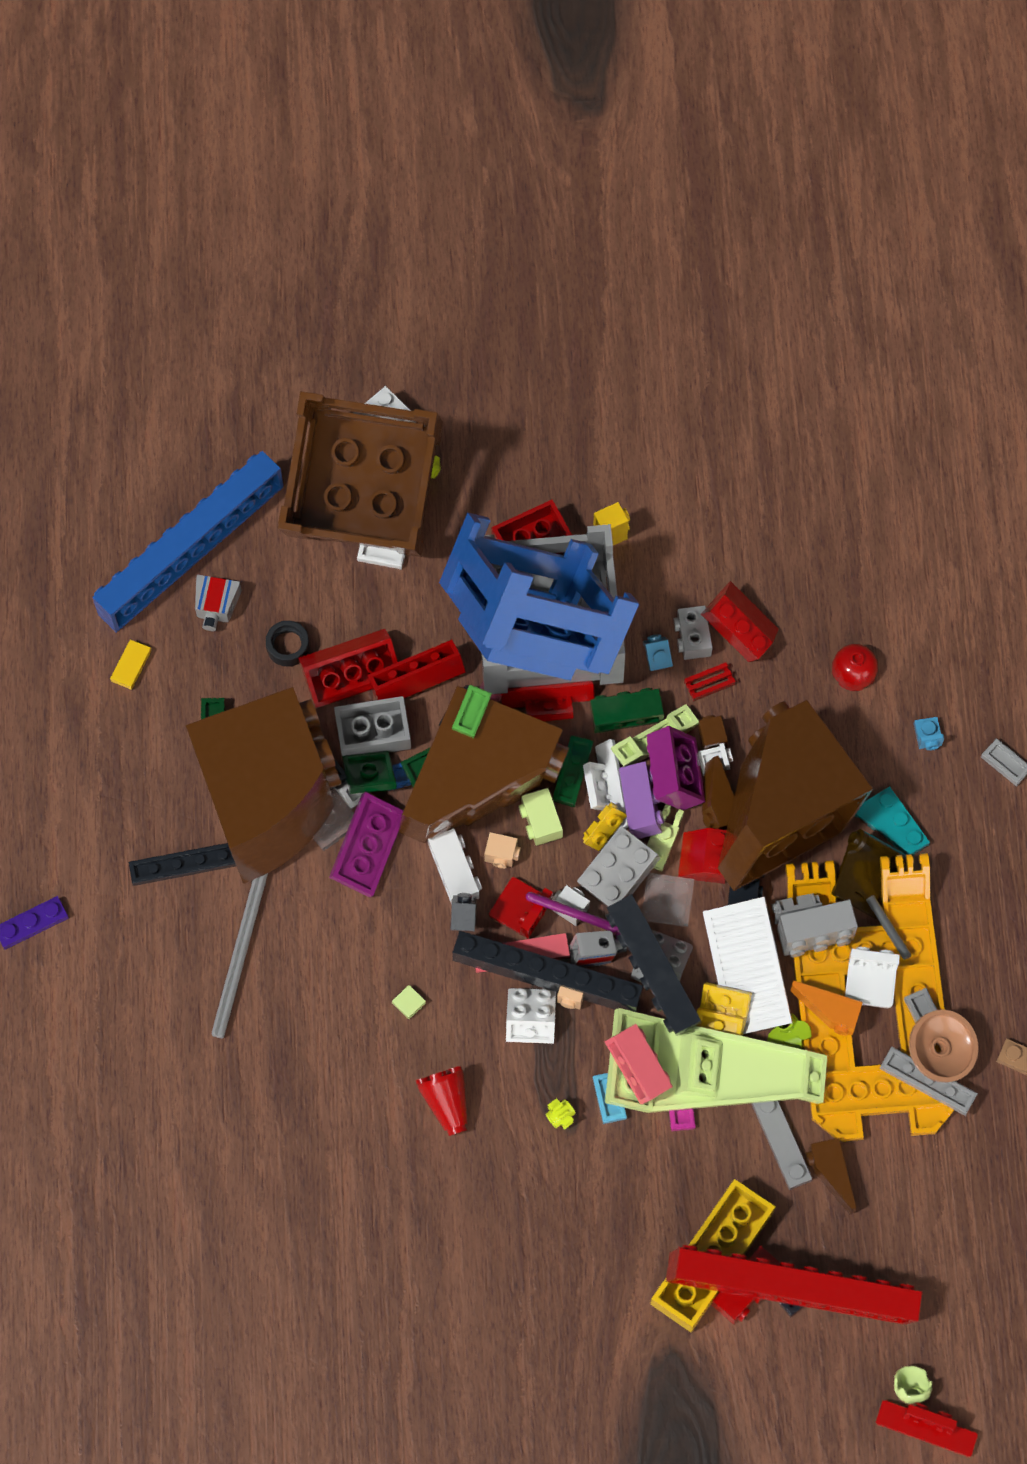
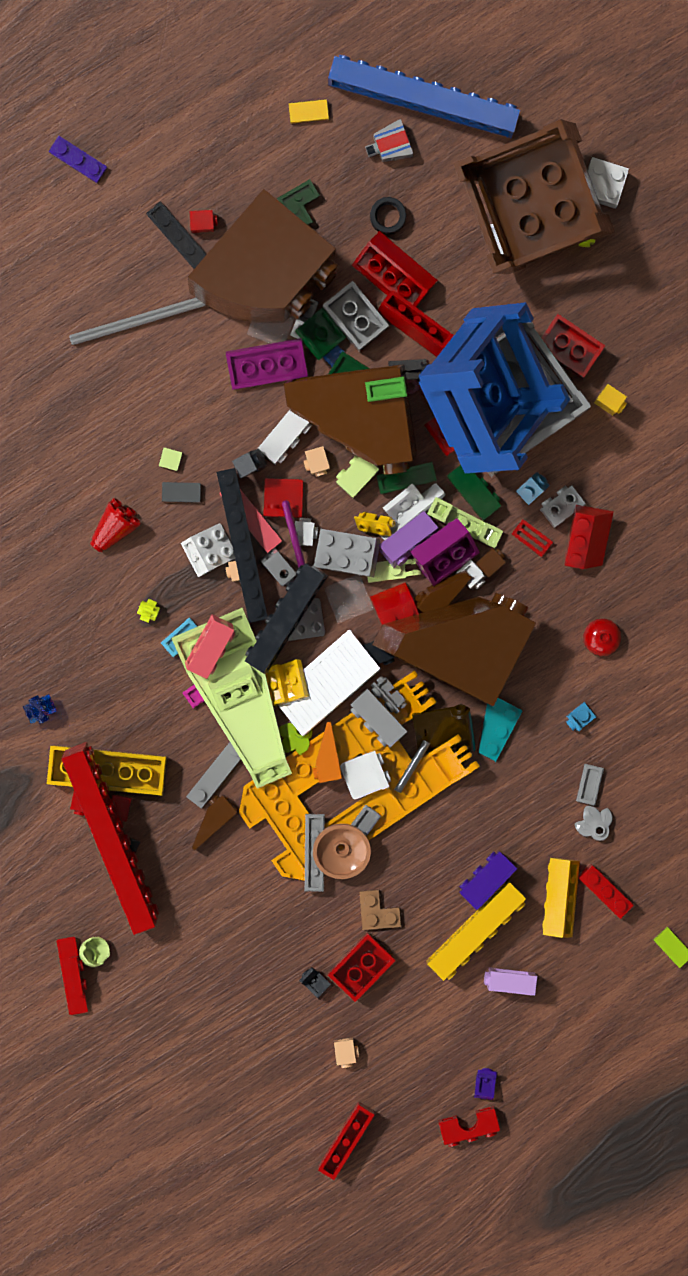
camera: 60 degrees right, 20 degrees up
(176, 829) = (202, 221): none -> red brick
(451, 1010) = (181, 492): none -> dark grey tile
(602, 1292) = (39, 709): none -> clear blue brick

